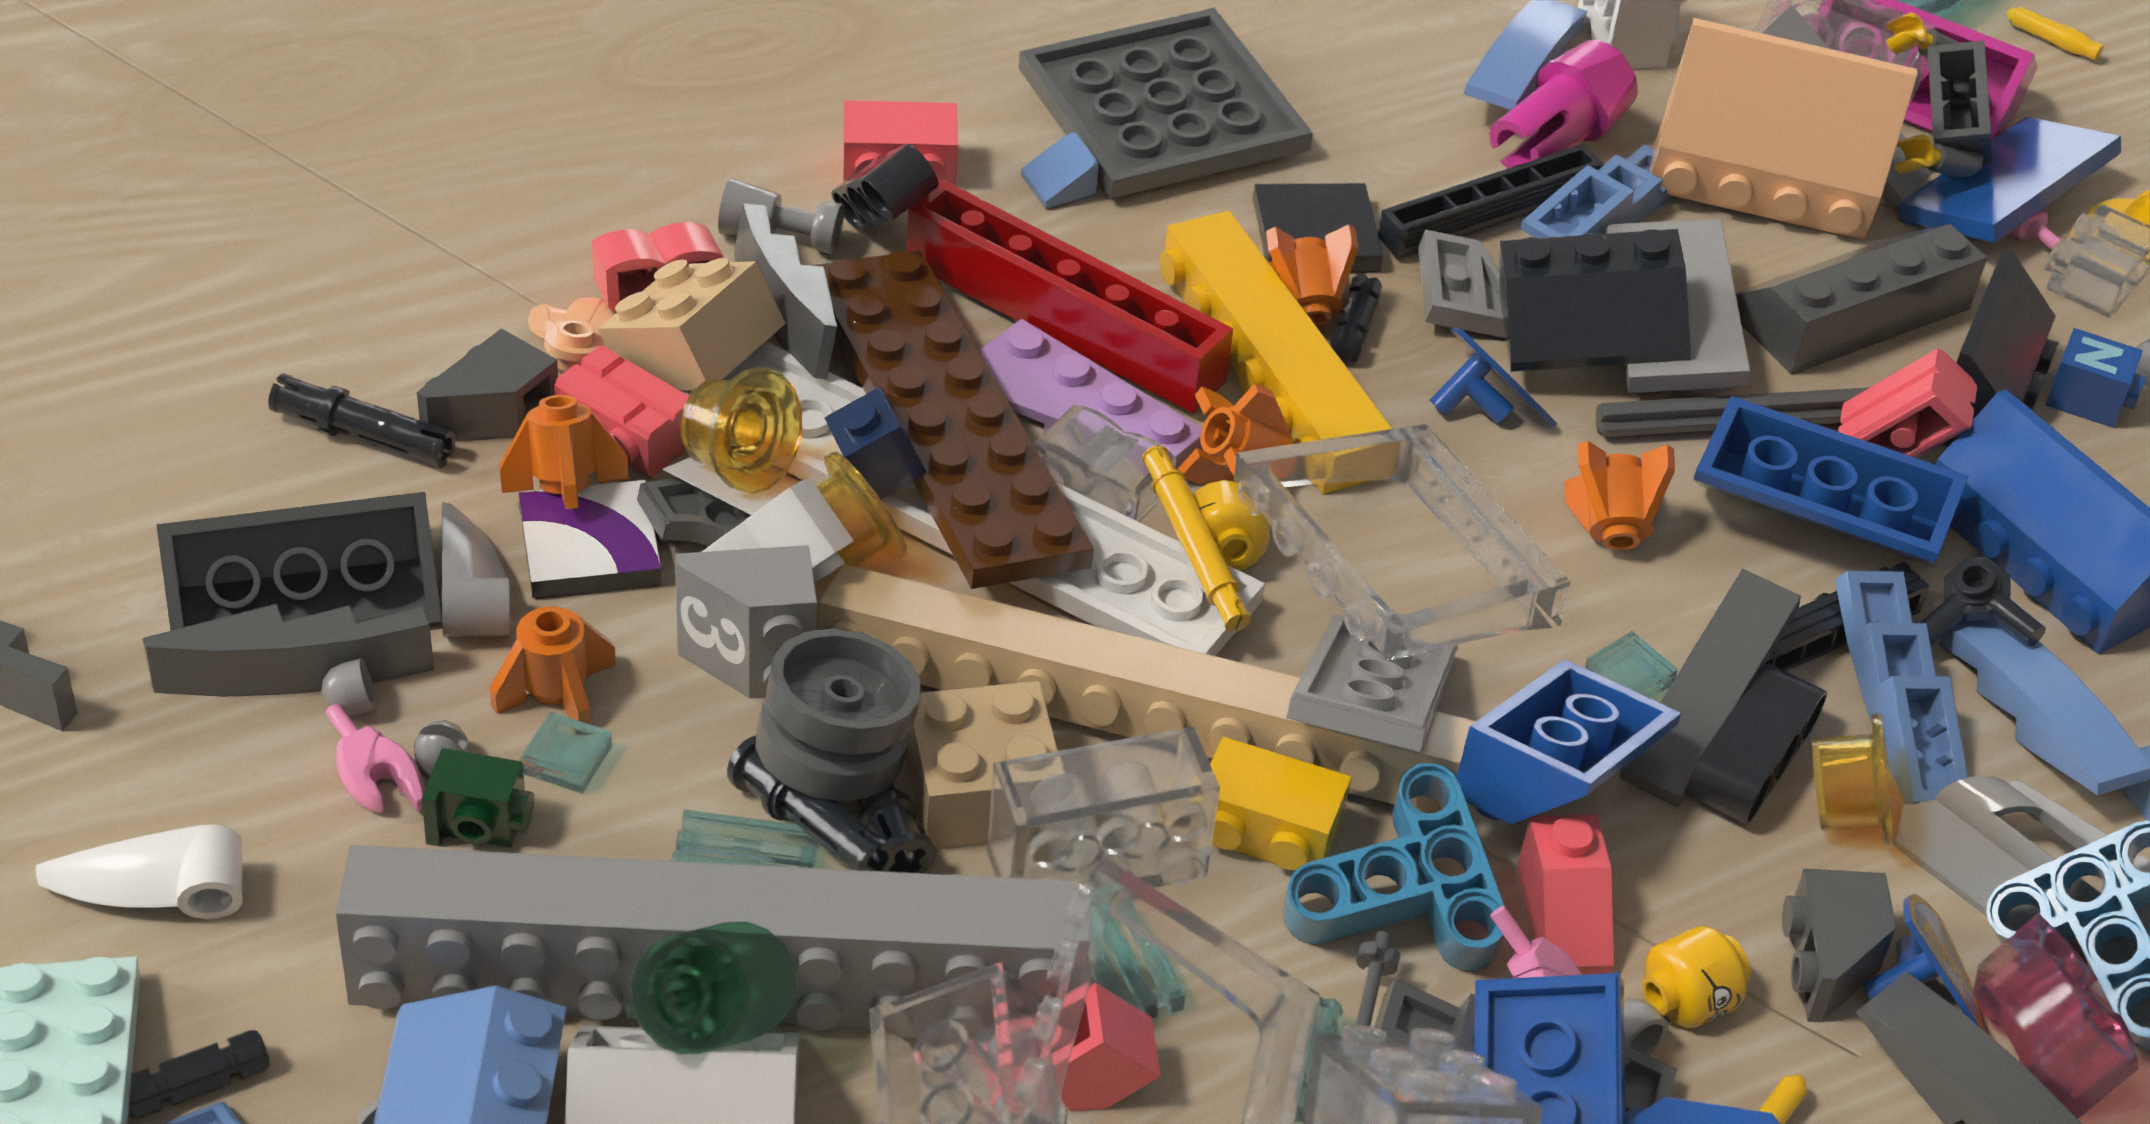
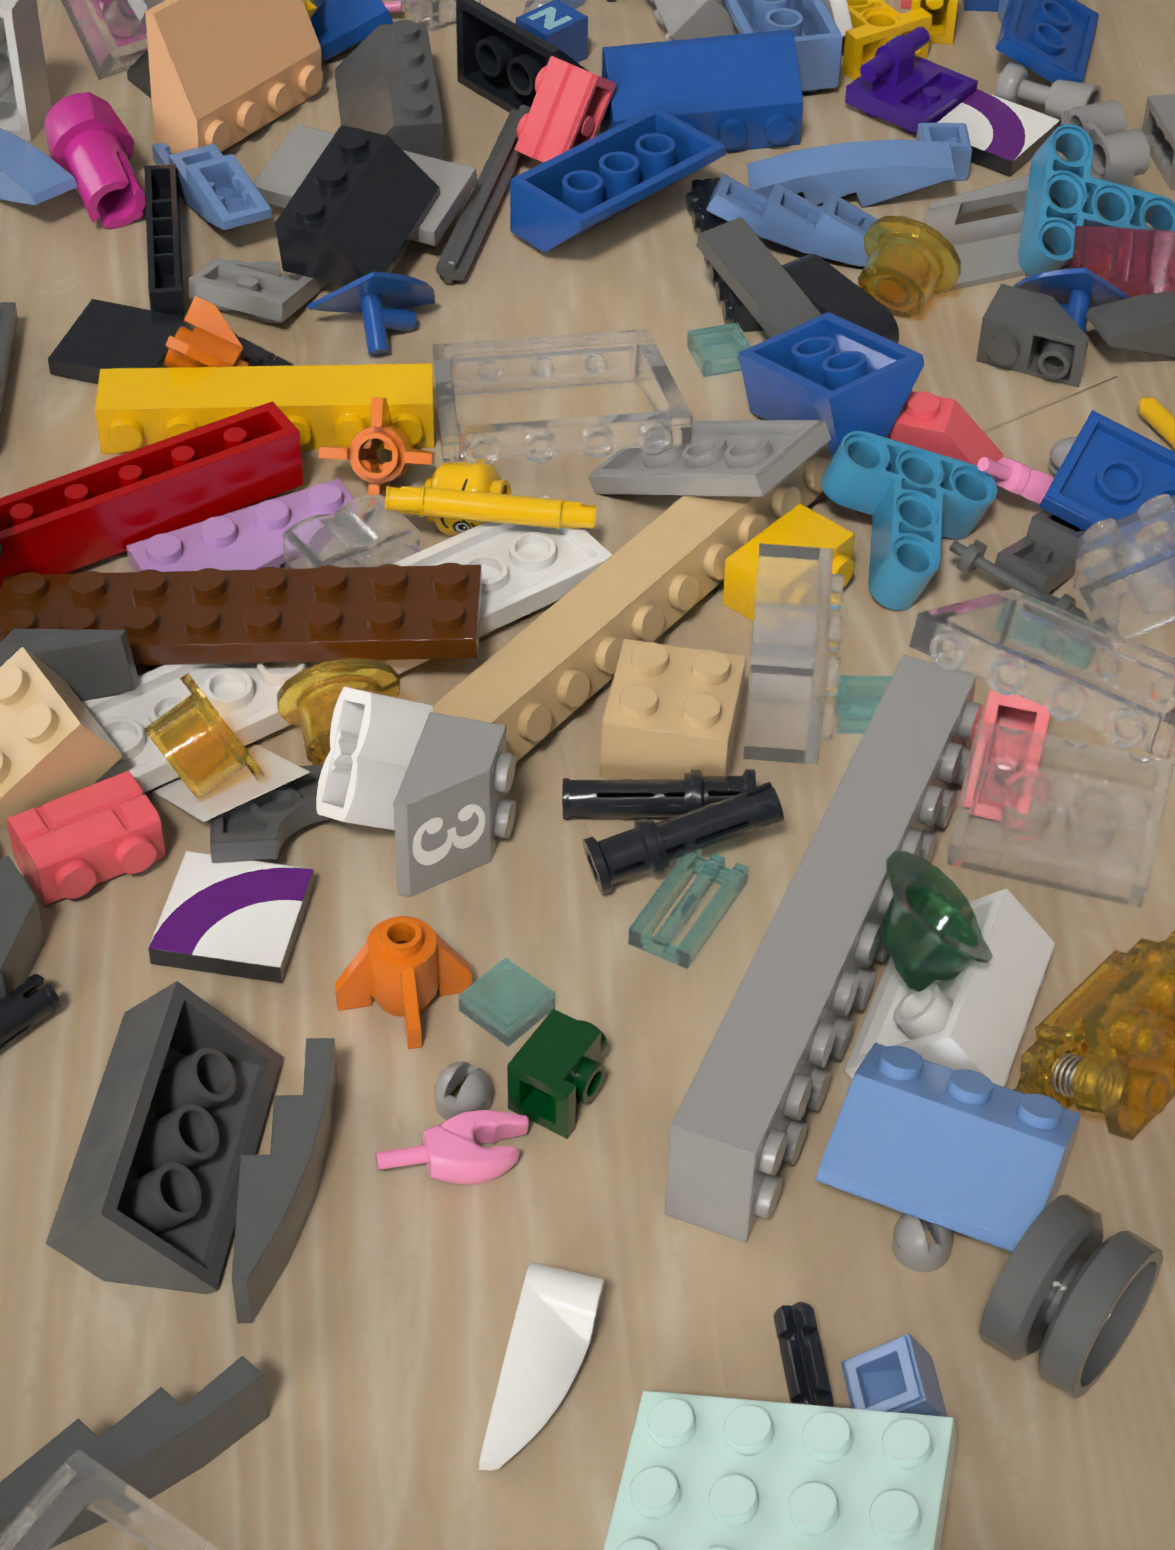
camera: 65 degrees left, 0 degrees up
(350, 687) = (354, 1139): light grey hinge -> none
(472, 580) = (281, 1013): light grey piece -> none
(562, 448) = (139, 889): orange brick -> none
(837, 714) = (624, 762): dark grey wheel -> none
(876, 442) = (262, 651): dark blue slope -> none
(1619, 493) = (556, 283): orange brick -> none
(1696, 976) = (1037, 409): yellow head -> none
(1978, 592) = (752, 153): black piece -> none

